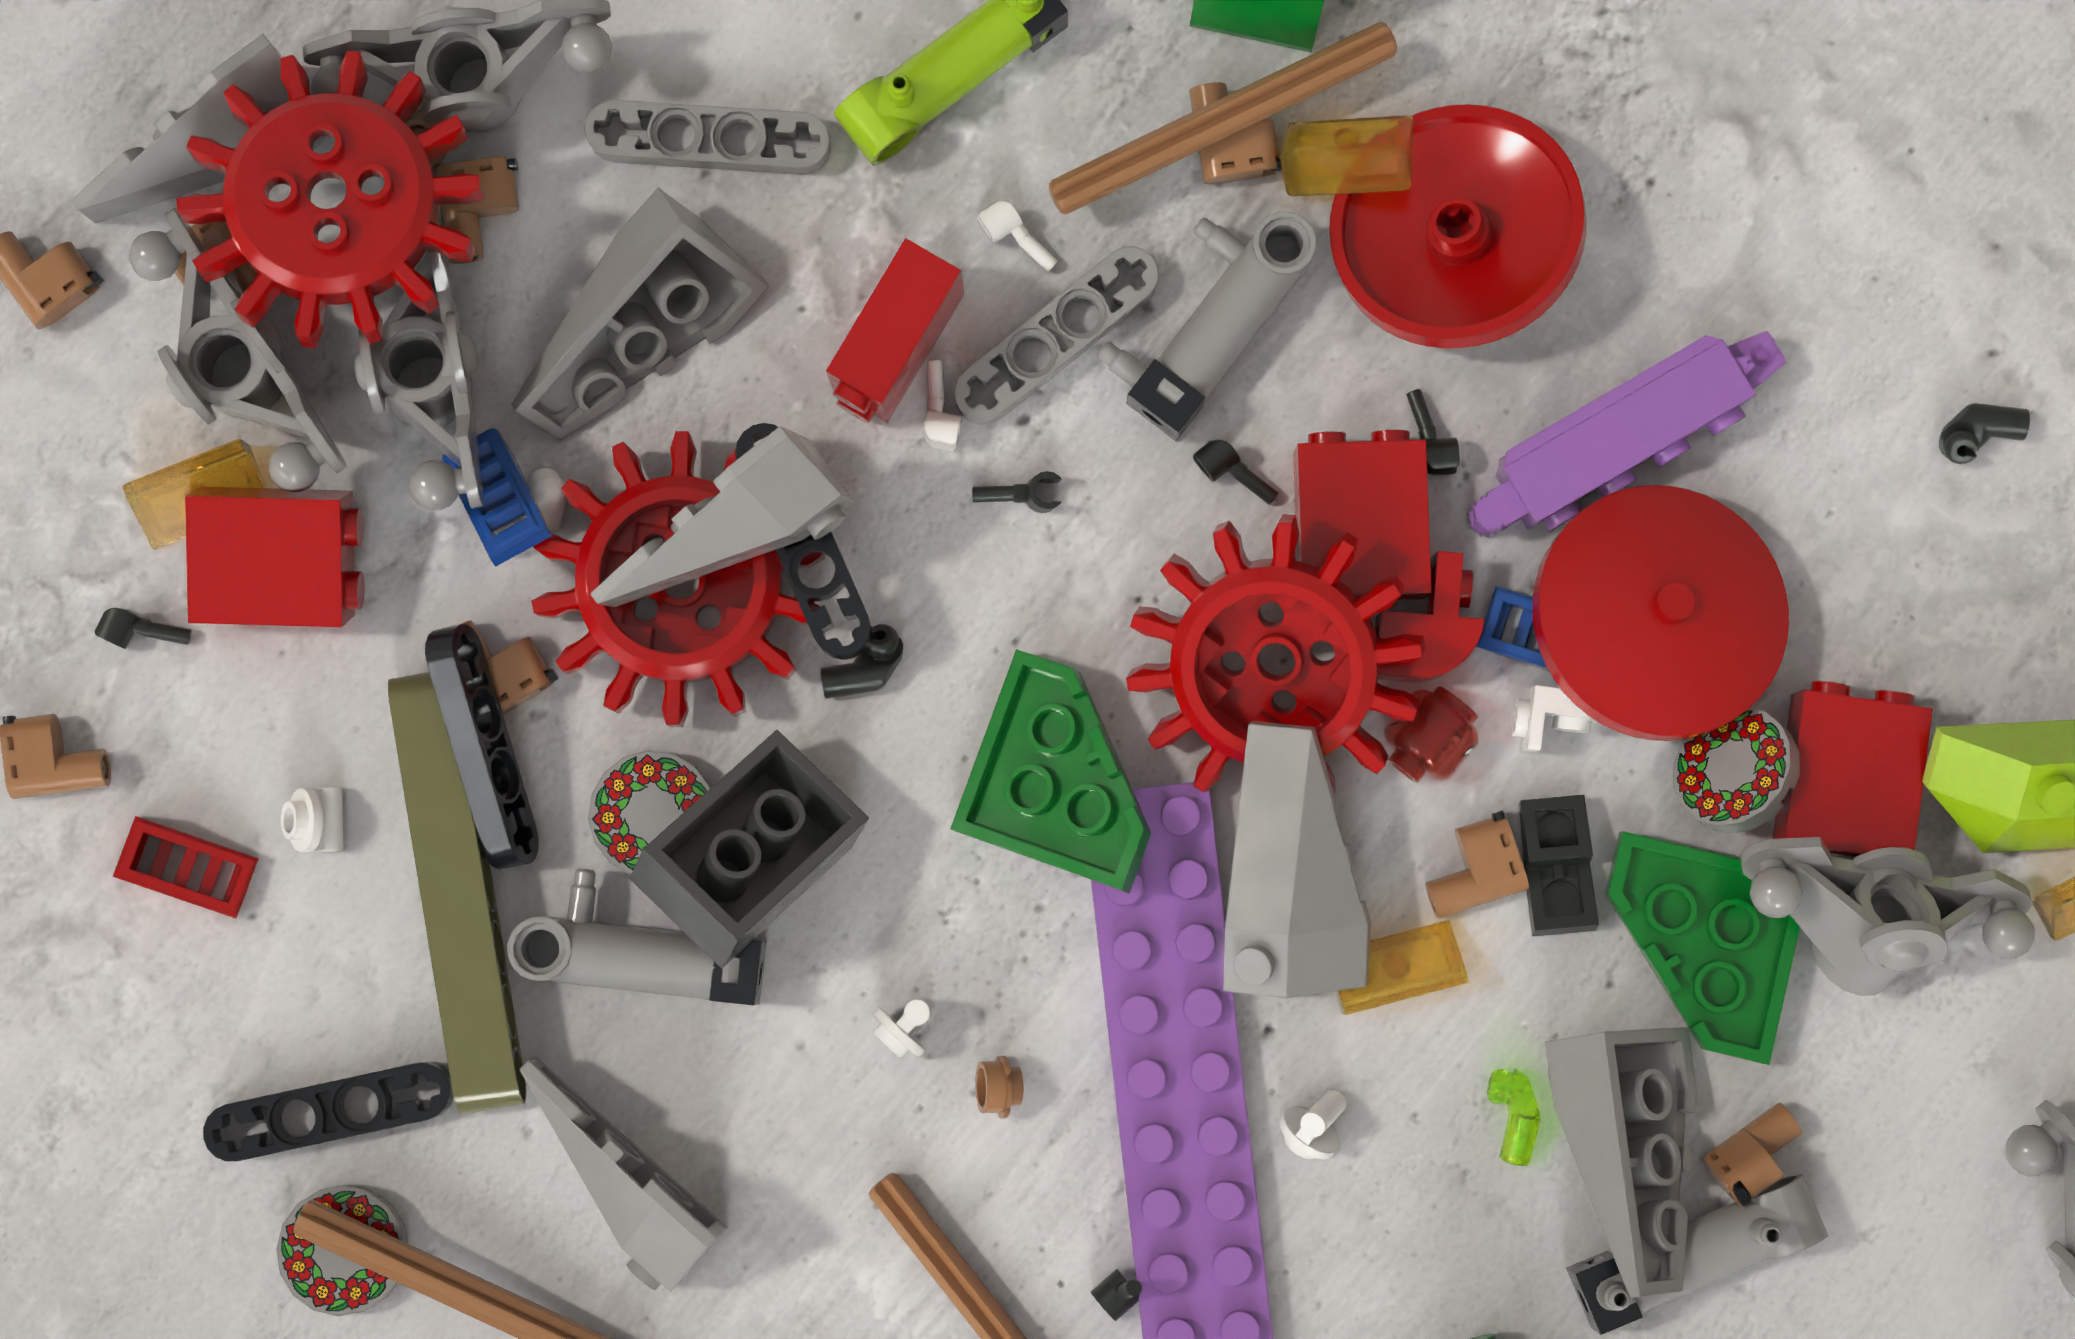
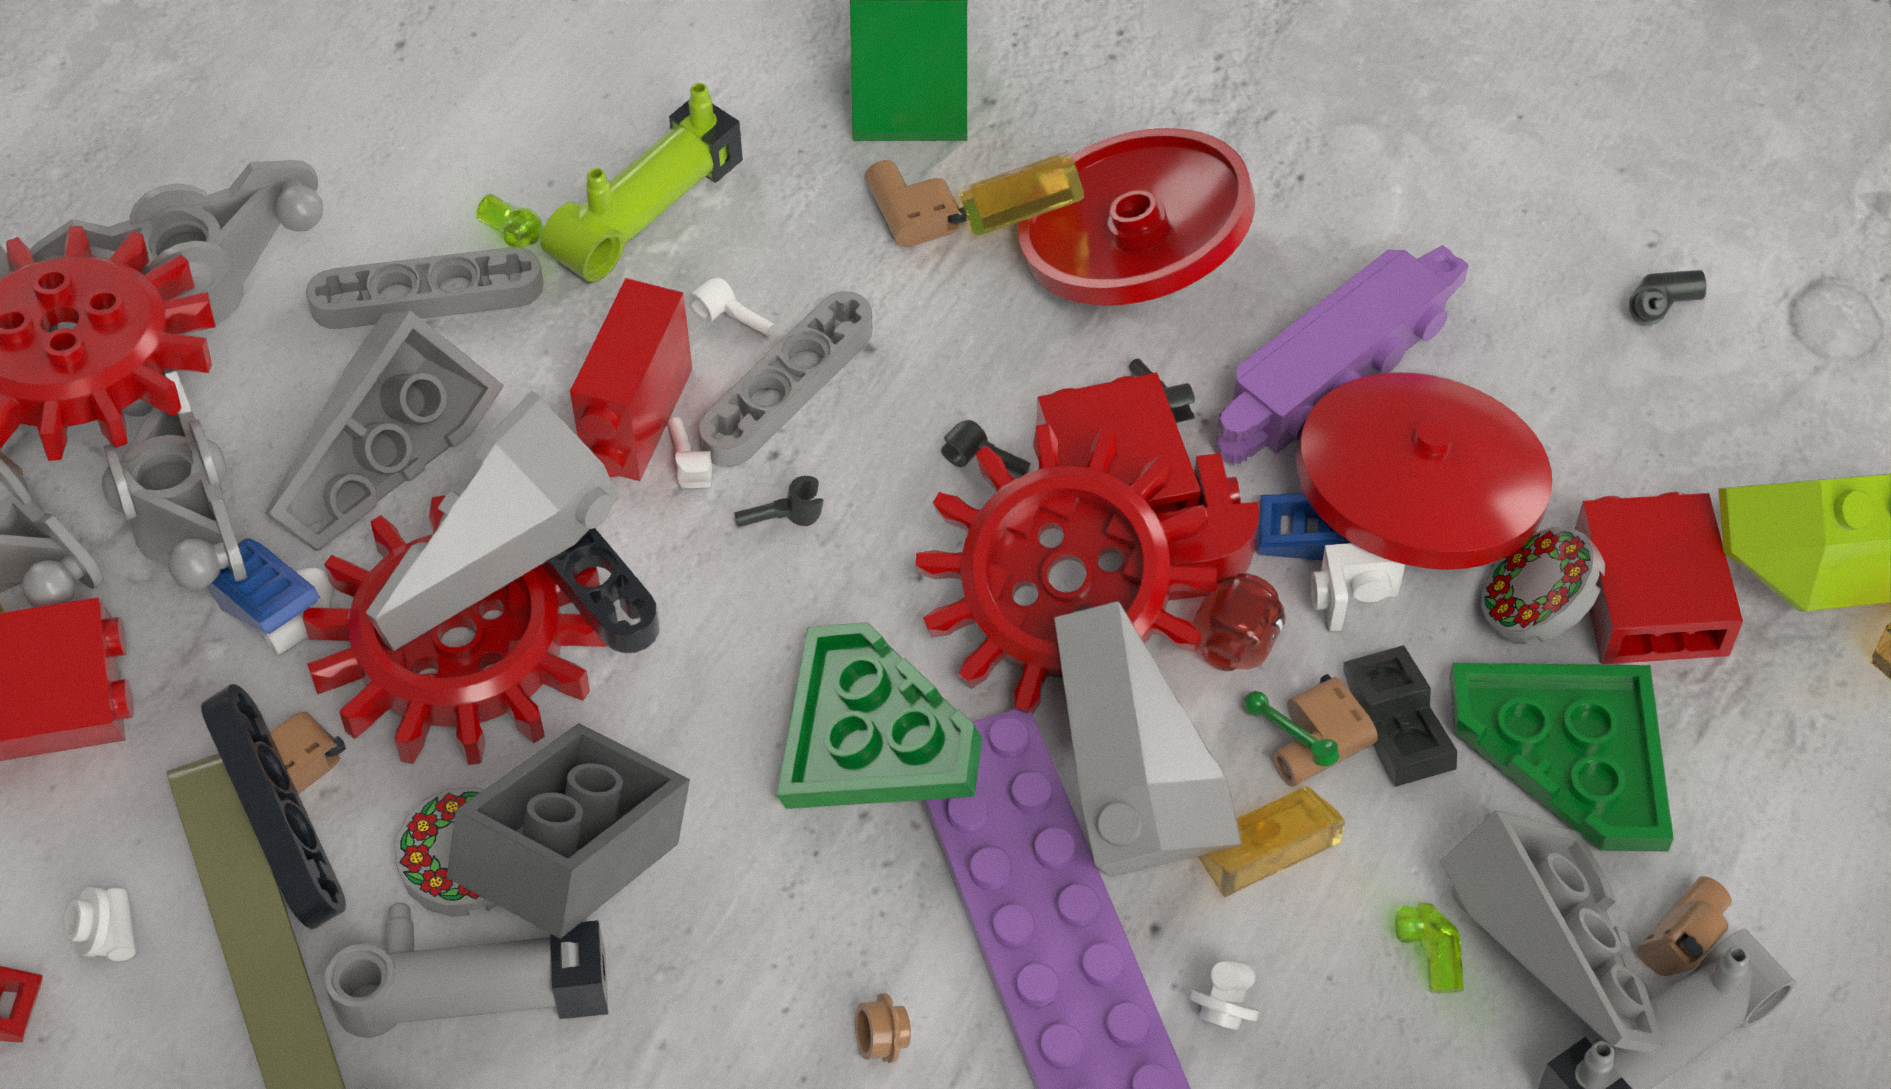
camera: 15 degrees left, 30 degrees down
(499, 197) = (228, 370): medium nougat piece -> none
(818, 80) = (517, 224): none -> clear neon green arm
(870, 668) = (665, 678): pearl dark grey arm -> none
(897, 1033) = (769, 989): white plate -> none
(1221, 326) = (908, 389): light grey piece -> none
(1222, 118) = (896, 177): medium nougat axle -> none
(1469, 909) = (1324, 751): none -> green hinge
(1882, 908) = (1724, 663): light grey piece -> none

